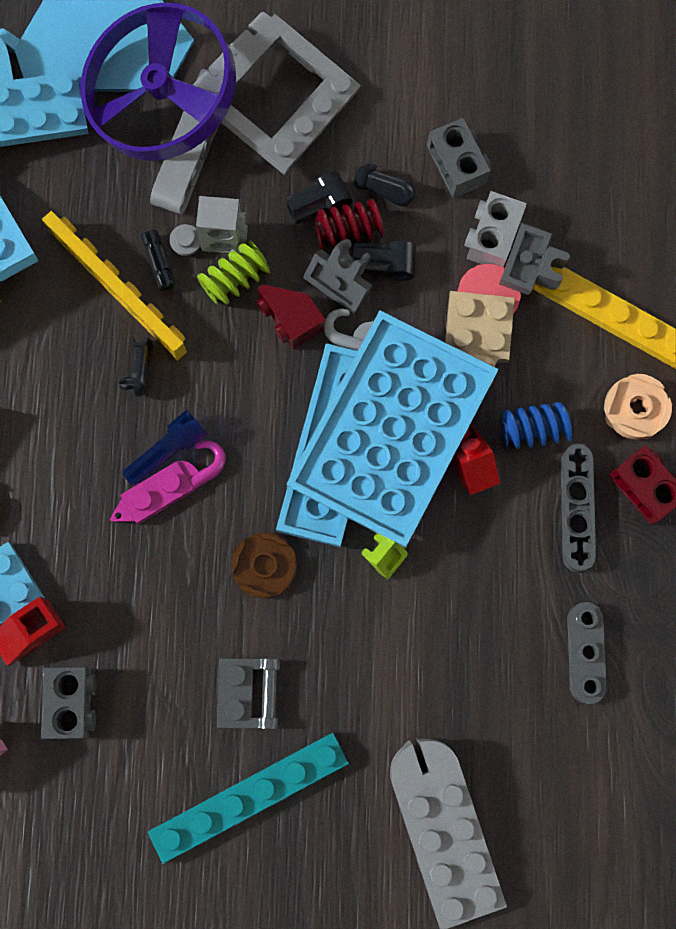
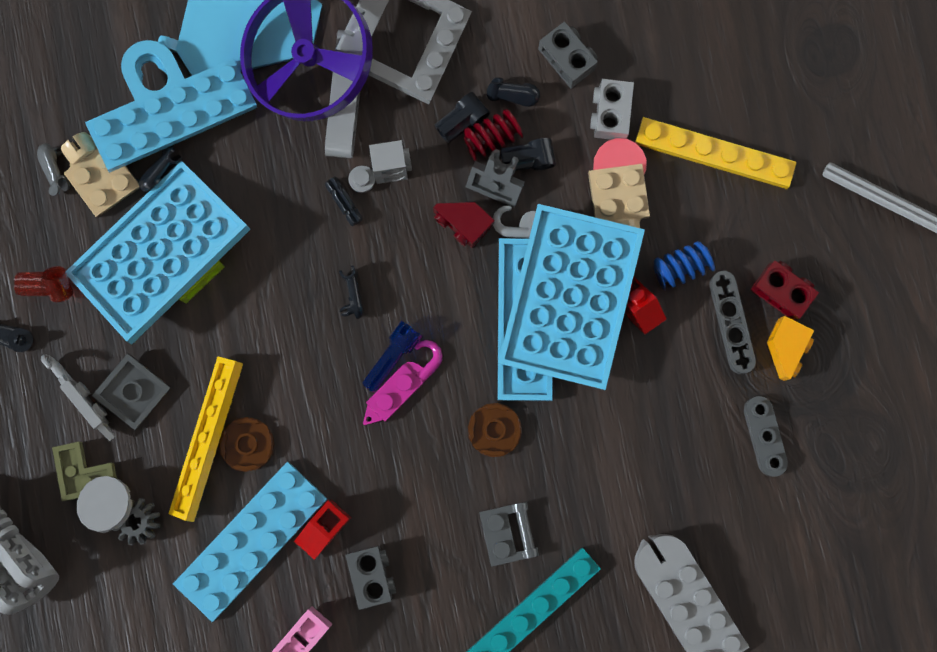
camera: 10 degrees left, 5 degrees up
(125, 293) = (307, 225): yellow plate -> none
(234, 272) = (409, 198): lime piece -> none
(386, 556) = (590, 399): lime tile -> none
(532, 261) = (649, 130): dark grey plate -> none
(637, 550) = (787, 346): none -> light orange slope
(653, 397) = (773, 219): light nougat plate -> none

